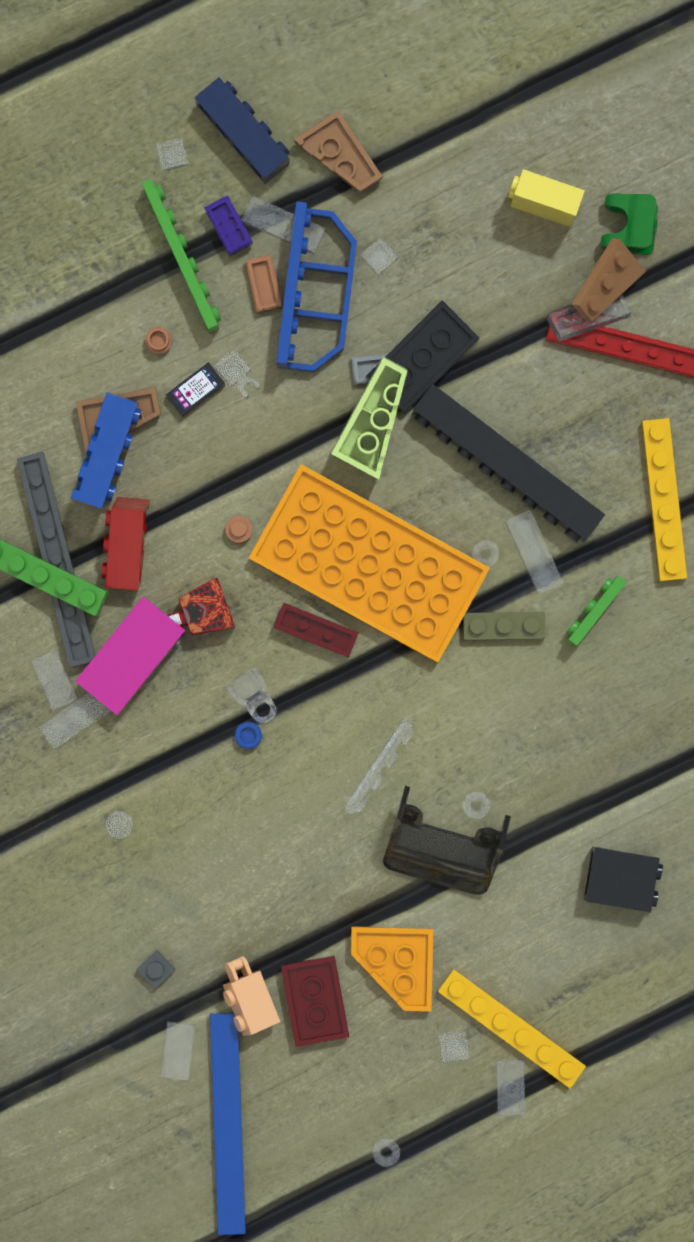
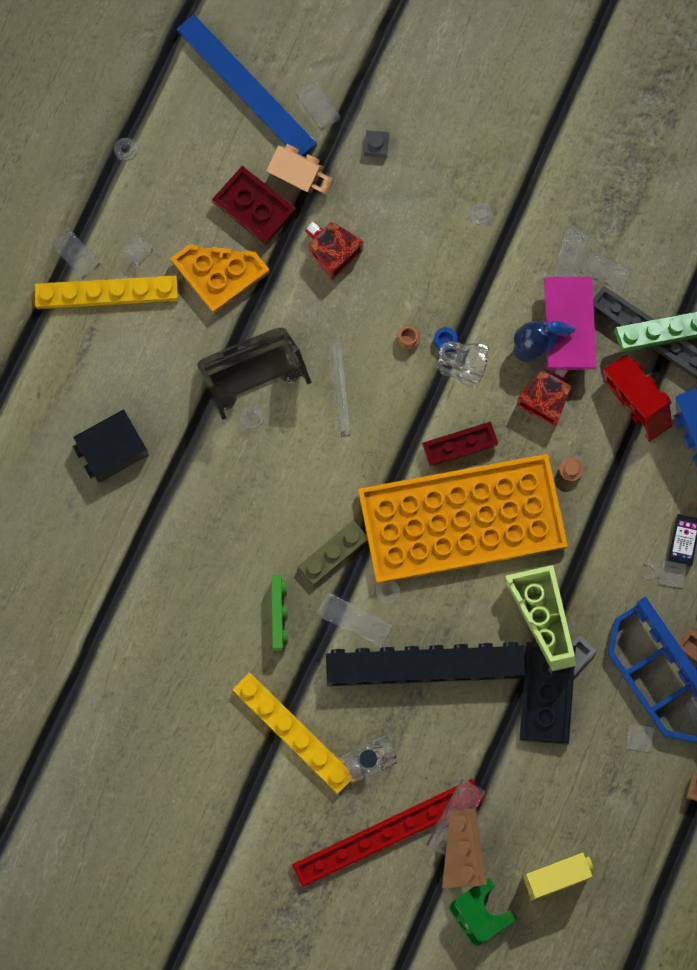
camera: 145 degrees right, 10 degrees down
(170, 663) = (538, 338): none -> dark blue hair
(278, 902) = (333, 247): none -> torso
(279, 764) = (408, 337): none -> nougat plate
(622, 425) = (369, 759): none -> clear piece

